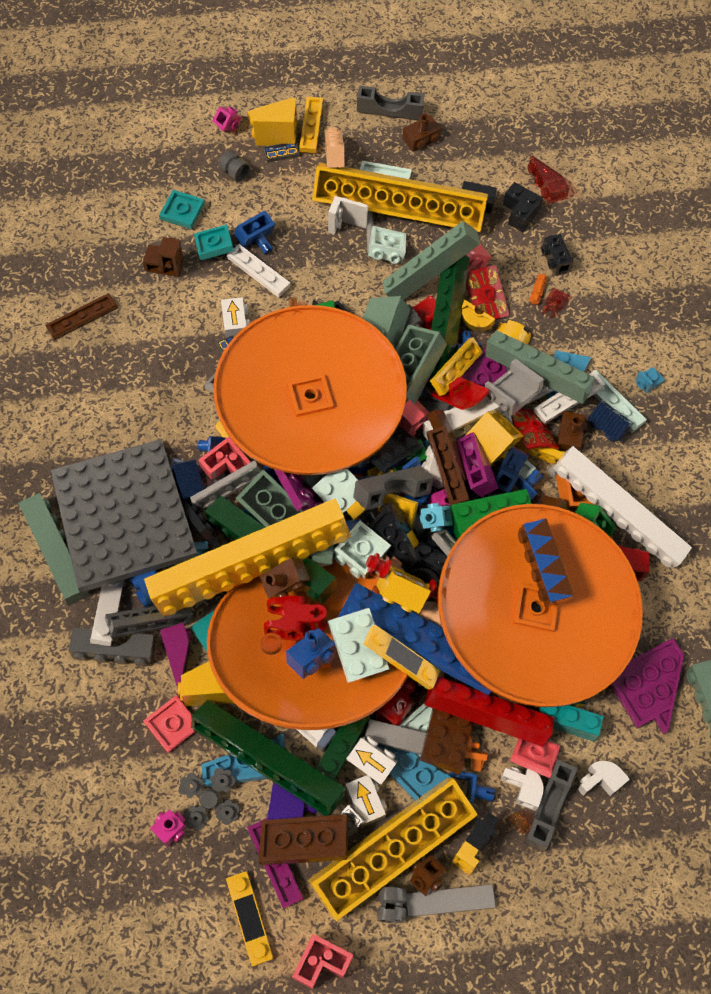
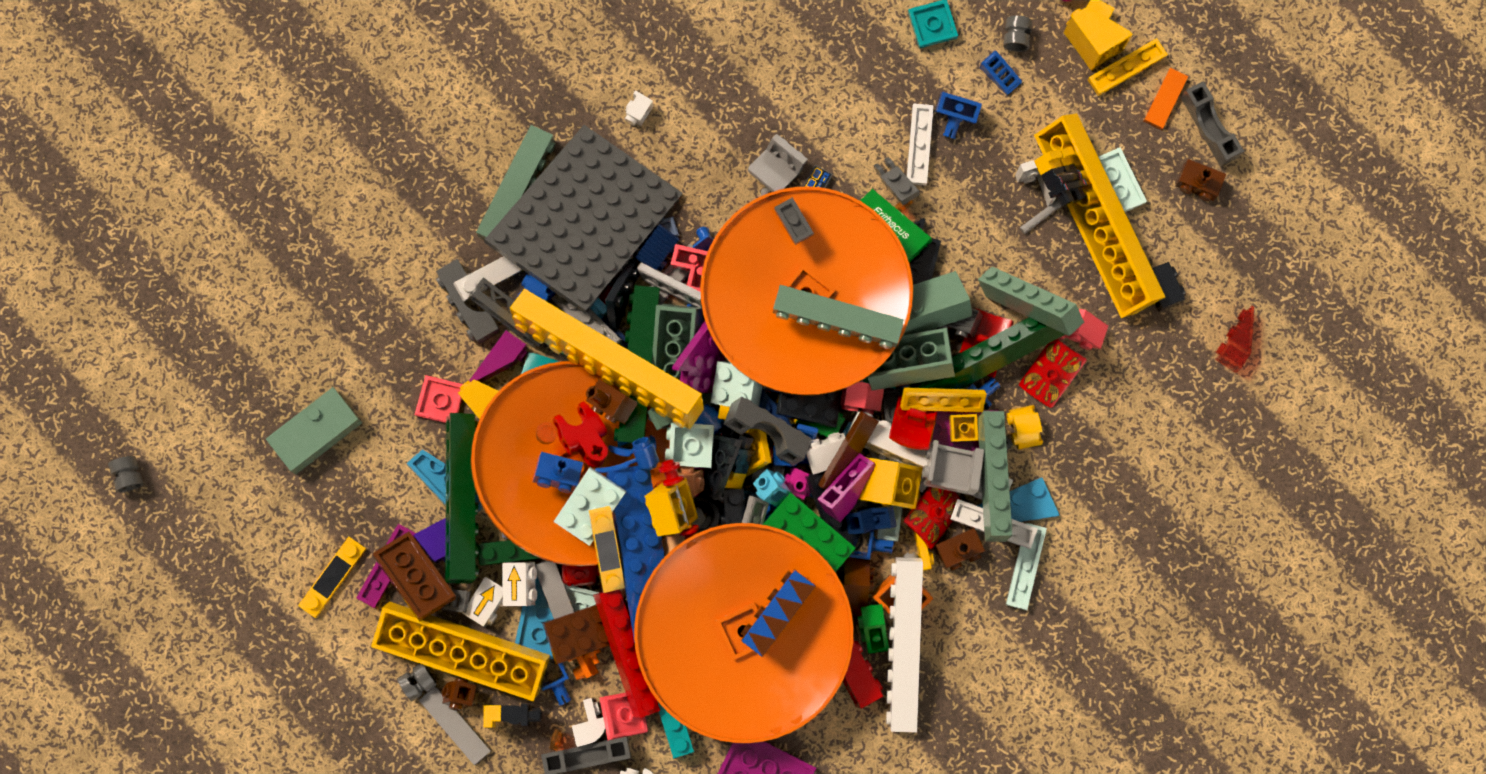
camera: 55 degrees right, 15 degrees up
(73, 425) = (638, 109): none -> white brick
(81, 316) = (751, 26): reddish brown tile -> none
(115, 843) = (314, 430): none -> sand green brick
(164, 259) = (864, 51): reddish brown brick -> none
(166, 834) = (348, 459): dark pink brick -> none
(196, 360) = (778, 164): none -> light grey bracket
(209, 798) = (399, 476): dark grey plant -> none
(213, 242) = (916, 81): teal plate -> none
(234, 315) = (851, 162): white brick -> none
(250, 199) = (1000, 62): none -> blue slope
(253, 358) = (793, 221): none -> dark grey plate
(273, 298) = (897, 182): none -> dark grey hinge
(280, 152) = (1073, 62): tile -> none
(321, 955) = (337, 651): coral brick -> none
(334, 148) = (1103, 114): light nougat brick -> none
(347, 376) = (838, 316): none -> sand green brick
(347, 577) = (643, 450): none -> blue plant
(350, 119) = (1165, 98): none -> orange tile
(357, 193) = (1061, 176): none -> black hips
(387, 245) = (1038, 241): light aqua plate -> none
(447, 465) = (823, 463): reddish brown slope -> none
(476, 321) = (1012, 379): yellow cylinder -> none
(485, 369) = (963, 428): none -> yellow piece
(523, 204) = (1189, 340): black brick -> none
(538, 289) = (1101, 416): orange axle -> none
(554, 301) = (1101, 441): clear red plate -> none
(557, 254) = (1153, 407): black brick -> none
(609, 421) = (998, 577): dark blue brick -> none
(649, 379) = (1076, 585): dark azure bracket -> none

